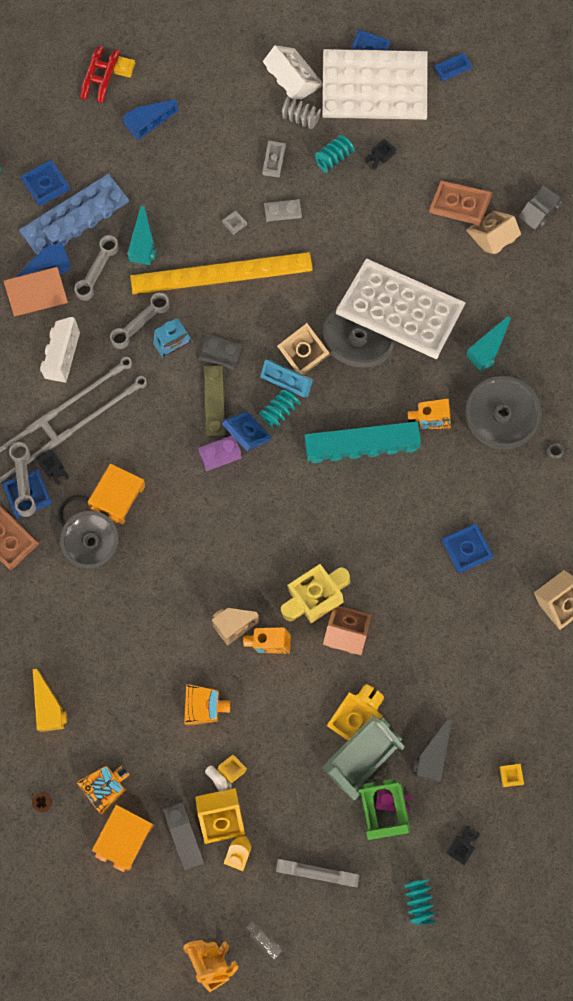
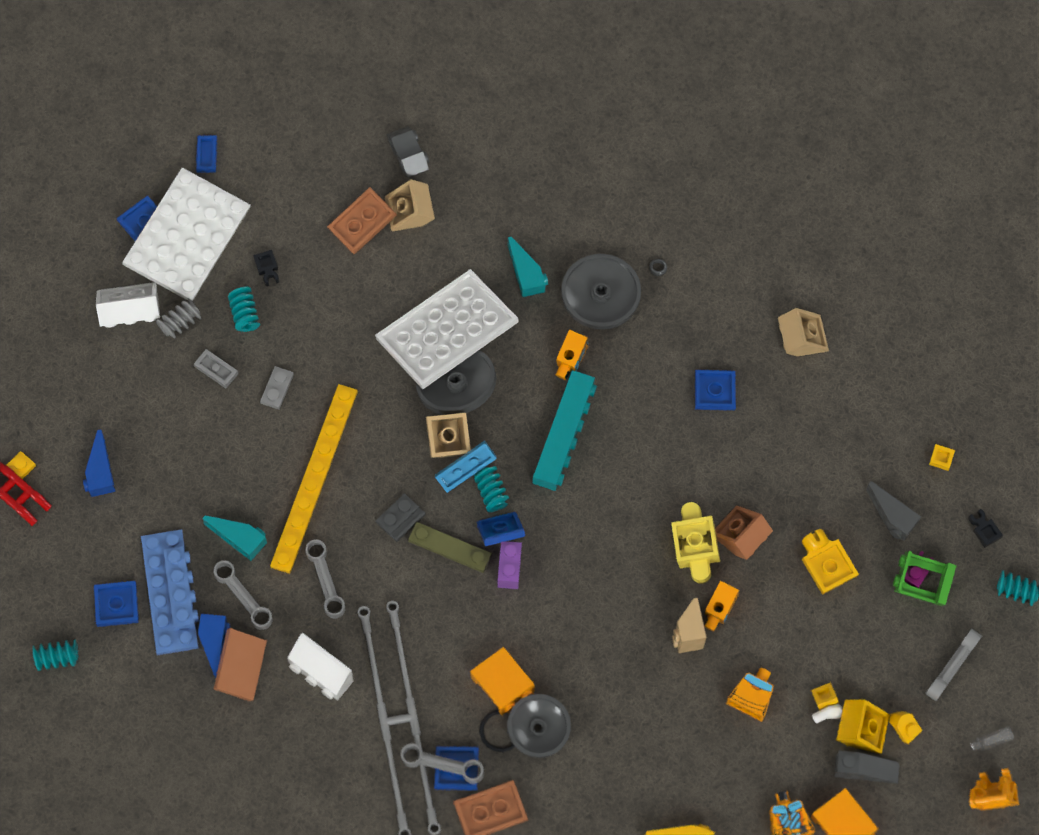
camera: 65 degrees left, 5 degrees down
(51, 466) = (438, 731): black plate -> none
(170, 337) = (363, 555): dark azure torso -> none
(234, 222) = (264, 439): light grey tile -> none
(362, 755) = (866, 573): sand green panel -> none

